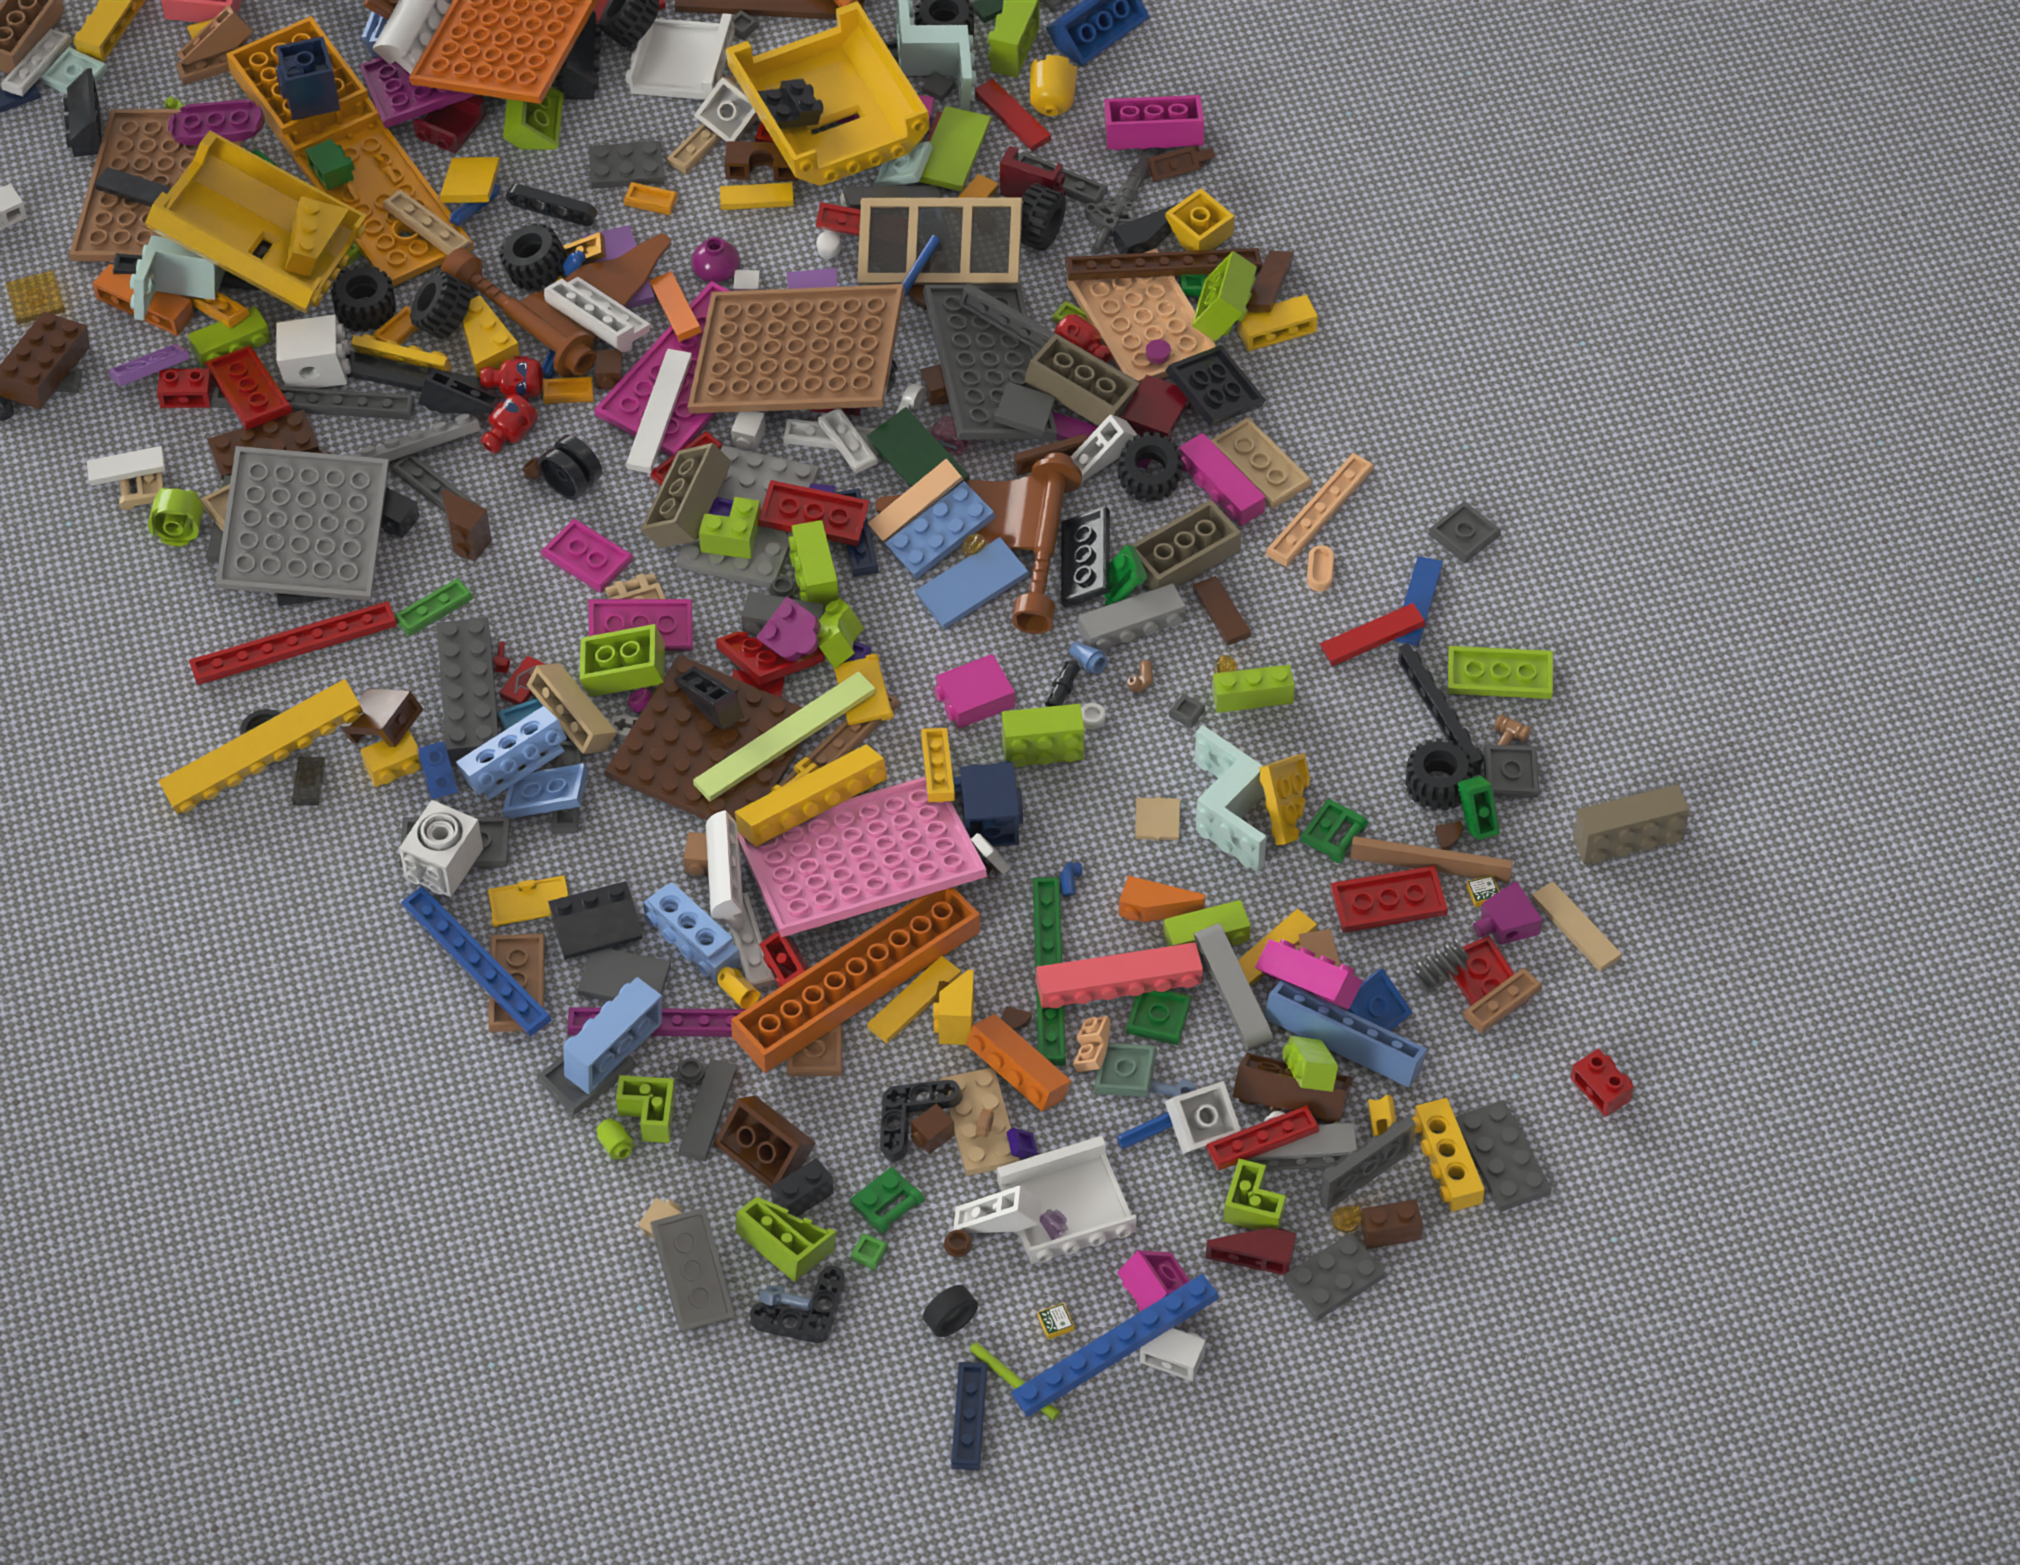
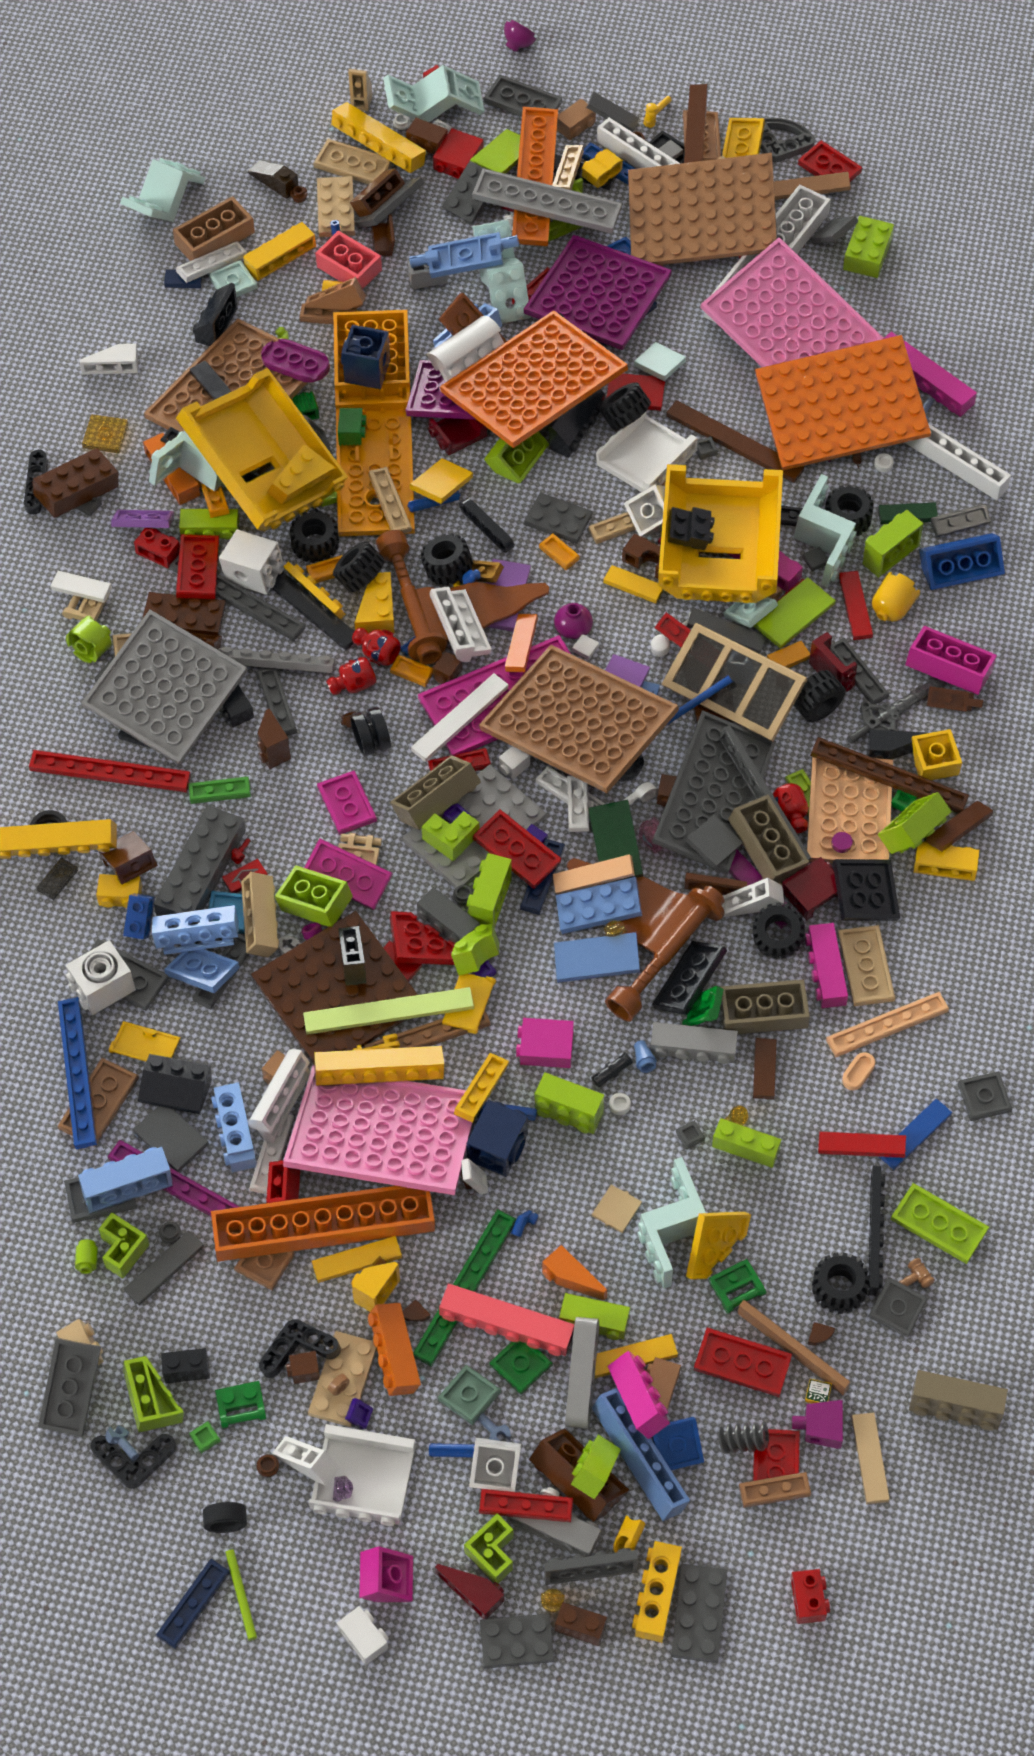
camera: 30 degrees right, 5 degrees up
(452, 395) = (329, 639): black slope -> none
(737, 987) = (240, 1186): yellow piece -> none
(763, 1141) = (184, 1313): reddish brown slope -> none
(791, 631) = (441, 932): magenta plate -> none
(1055, 1321) = (298, 1564): tile -> none
(1094, 1043) = (460, 1360): light nougat slope -> none
(1114, 1345) = (320, 1610): blue plate -> none
(1145, 678) = (674, 1094): medium nougat arm -> none
(1479, 807) = (850, 1326): green brick -> none

